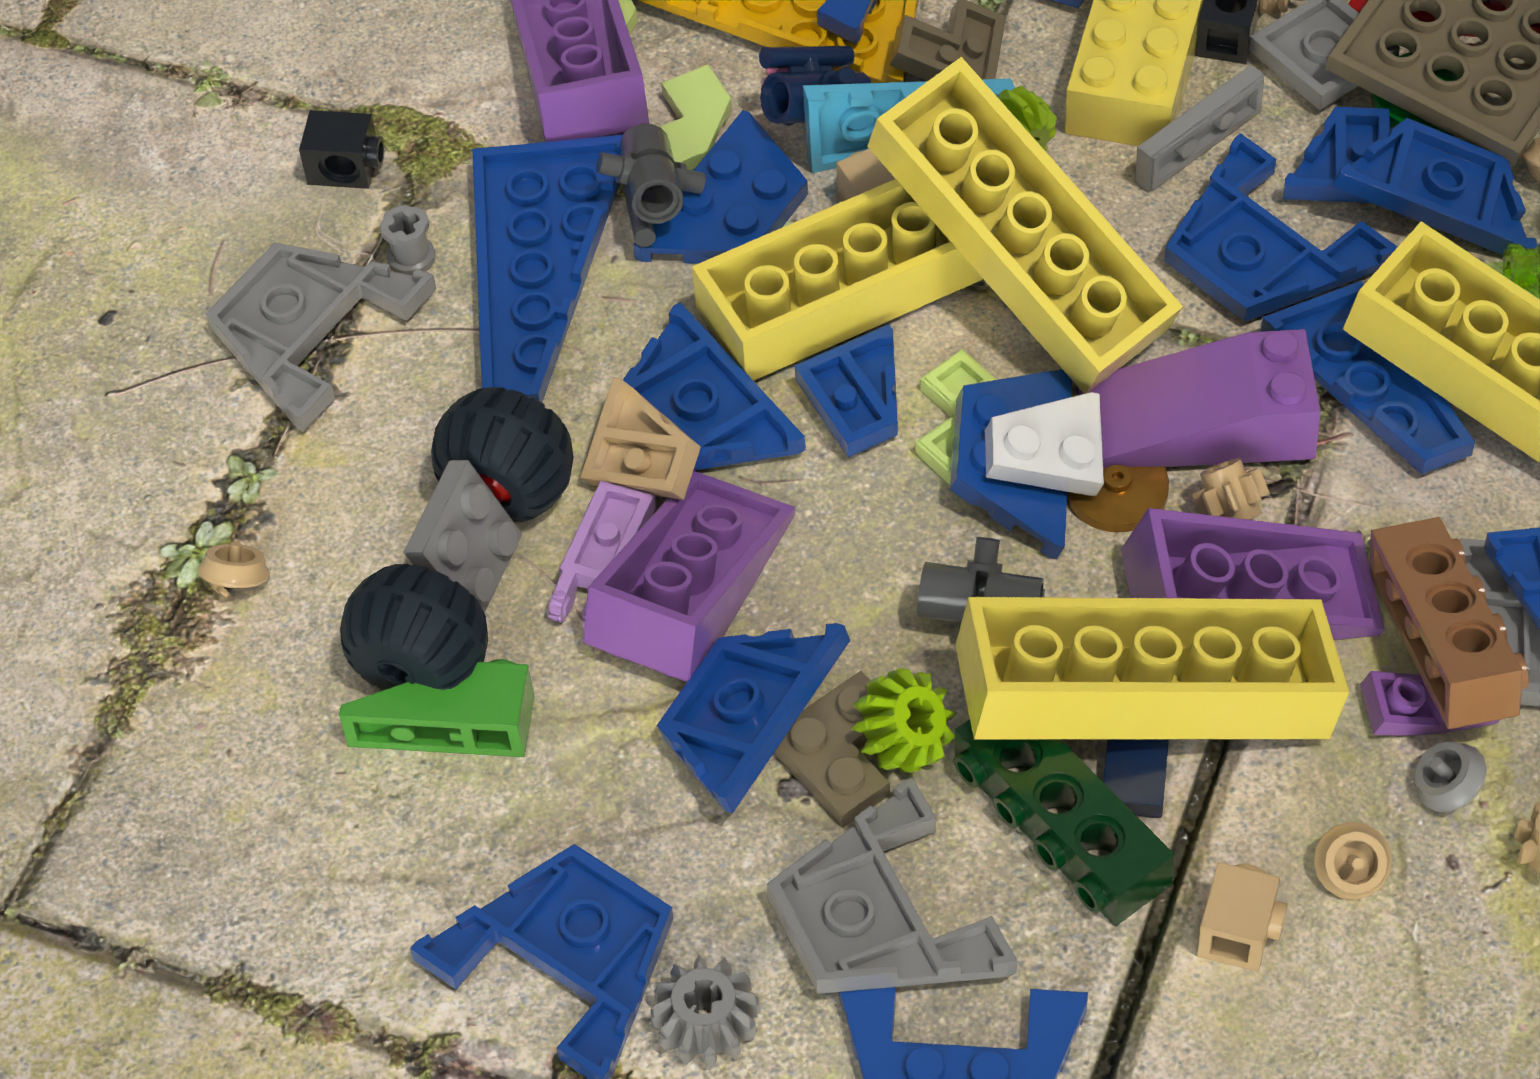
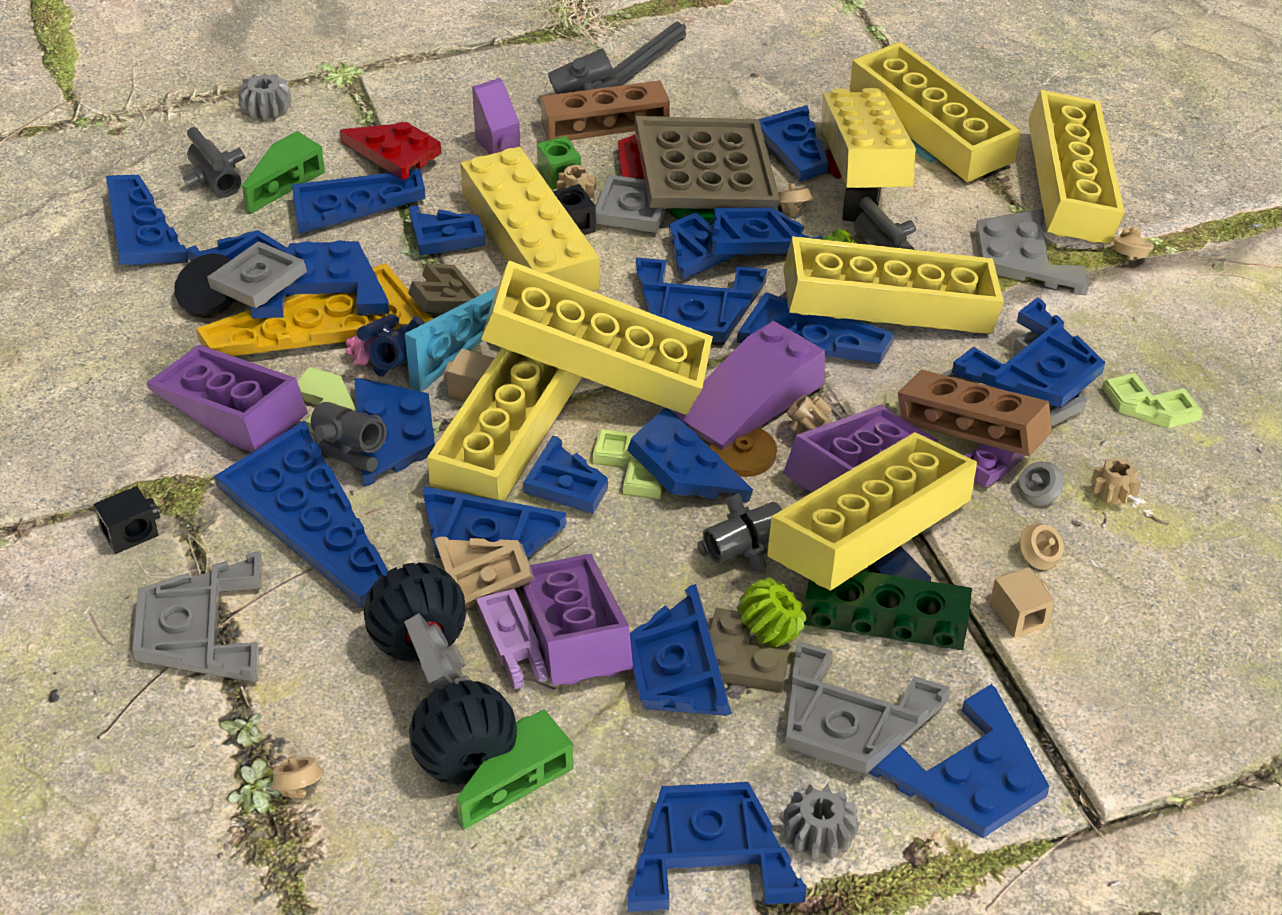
camera: 45 degrees left, 10 degrees down
(406, 233) = (219, 542): light grey bush -> none
(1049, 445) = (705, 442): white wing -> none
(1199, 129) = (613, 260): light grey tile -> none

